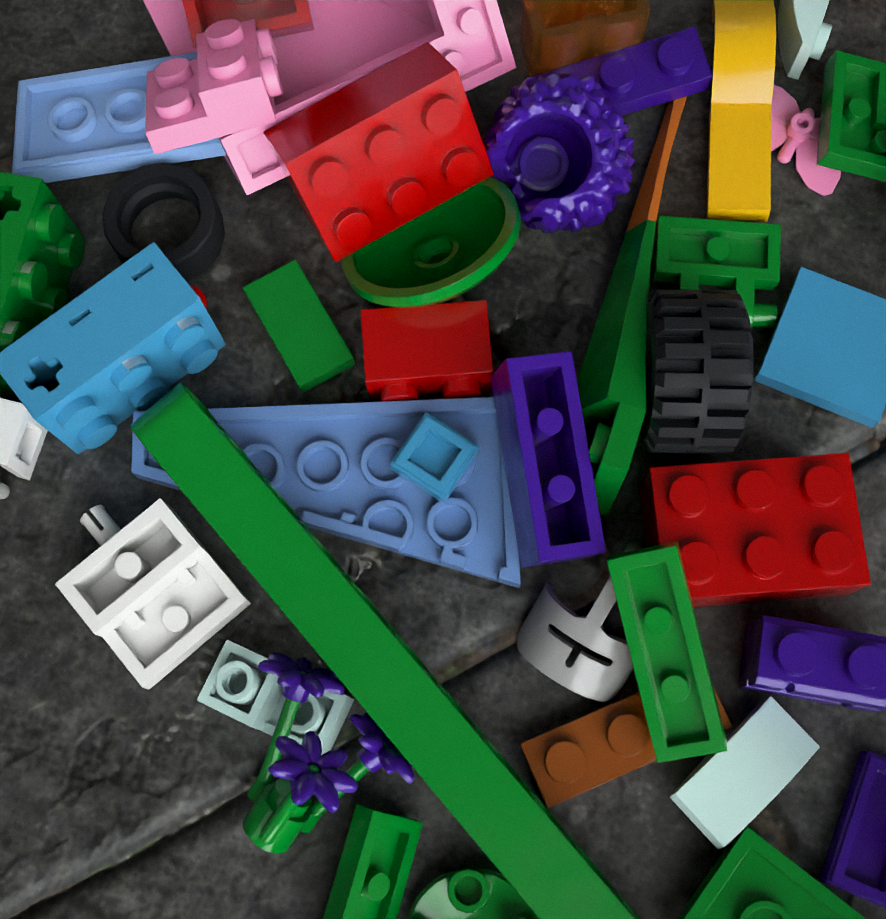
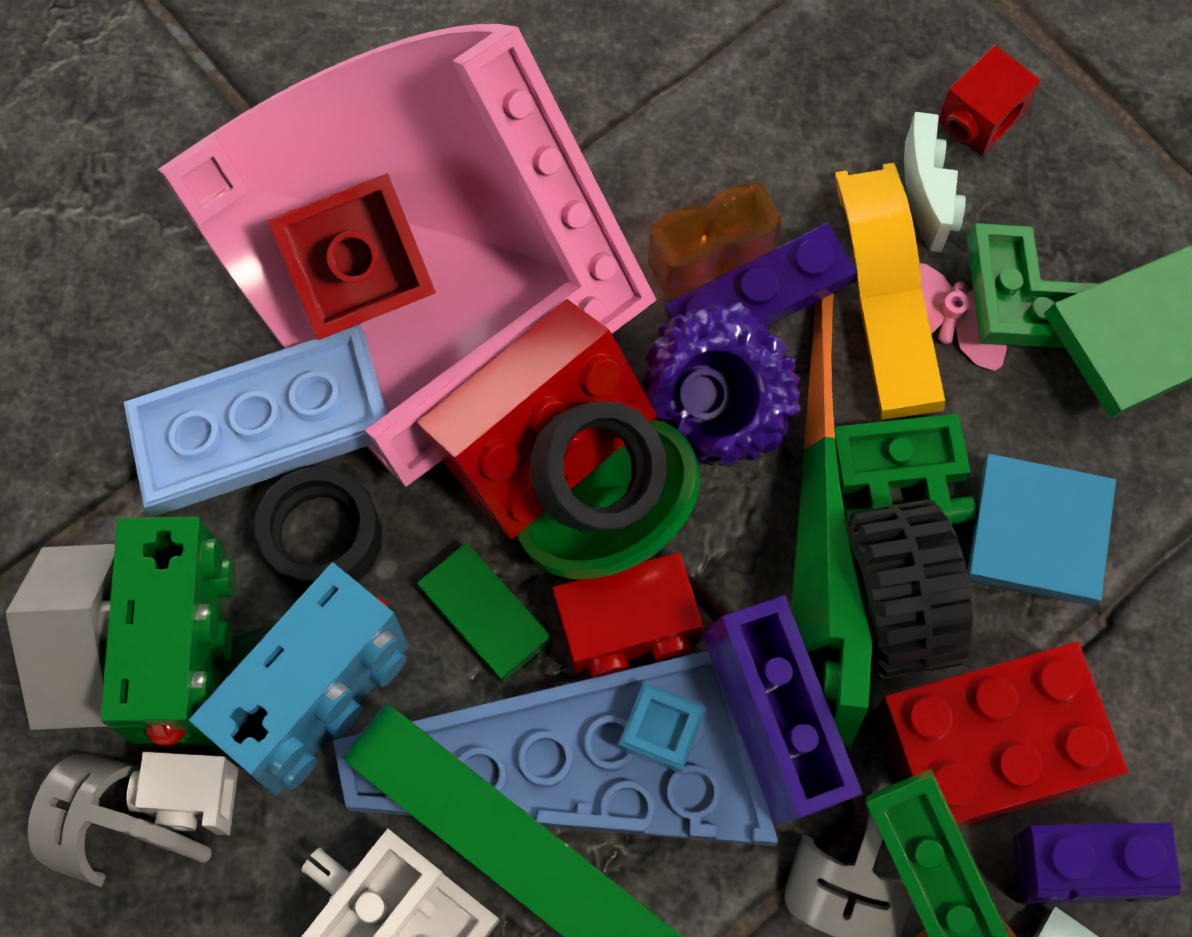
camera: 15 degrees left, 5 degrees down
(218, 92) = (354, 386): bright pink plate -> none
(467, 189) = (646, 457): none -> black tyre

